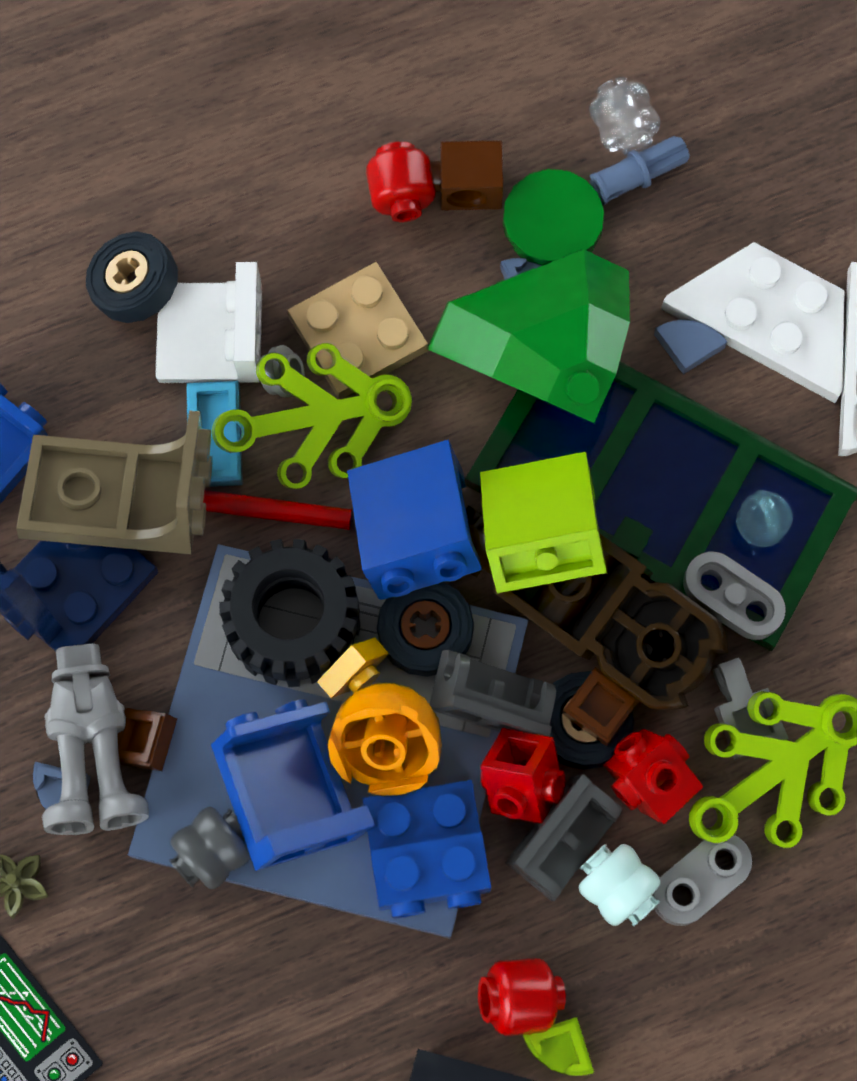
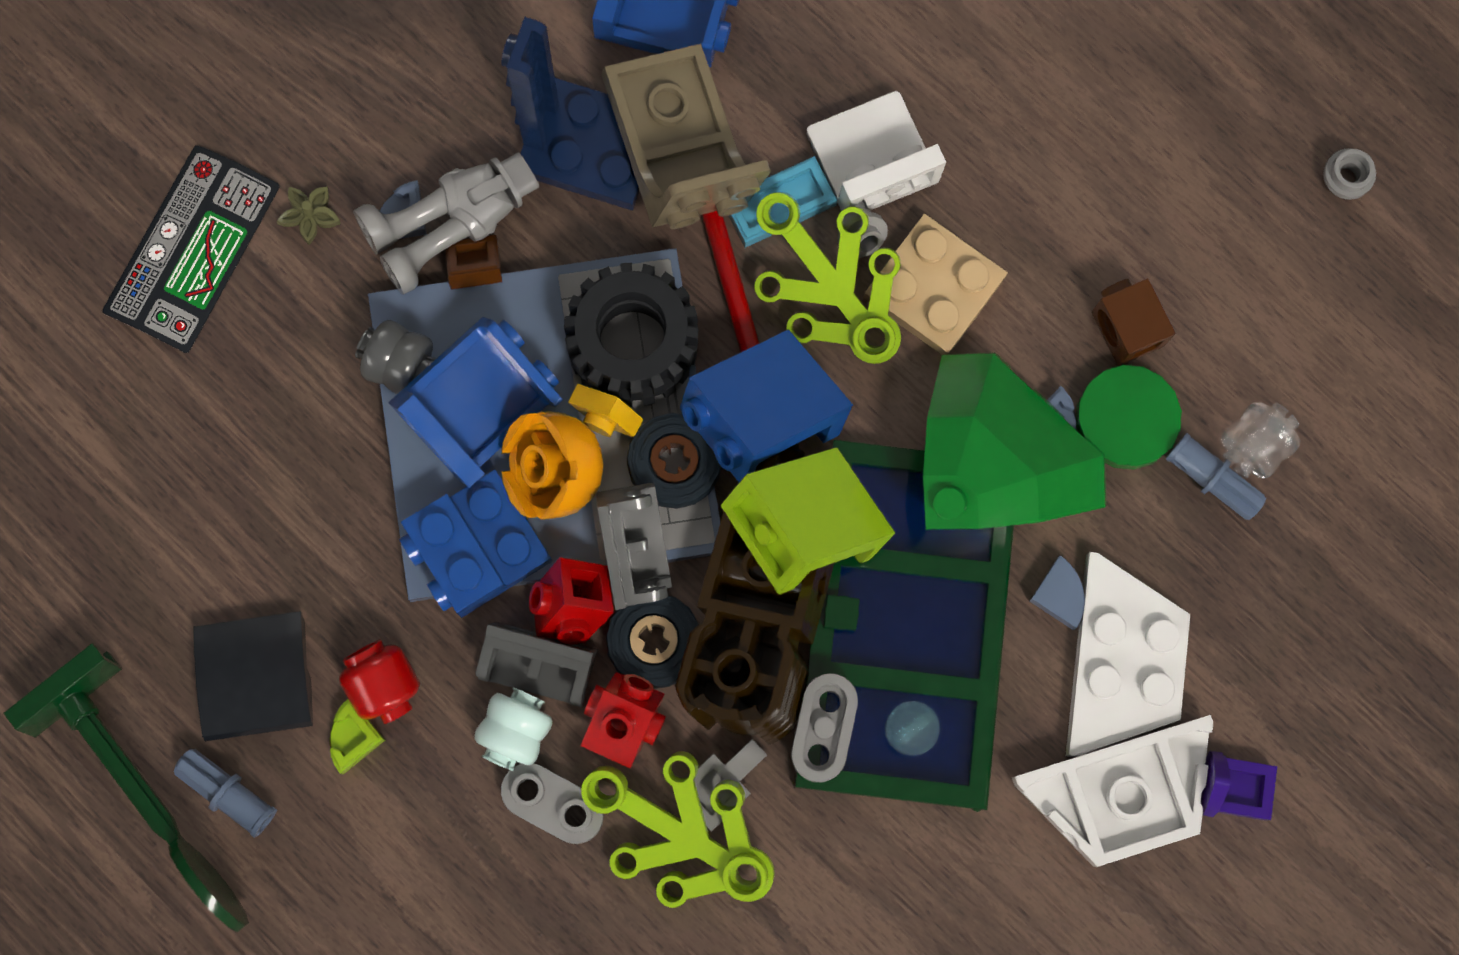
camera: 60 degrees right, 5 degrees up
(147, 293) = (903, 80): black bush -> none
(400, 181) = (1095, 260): red head -> none
(600, 706) = (663, 645): reddish brown tile -> none

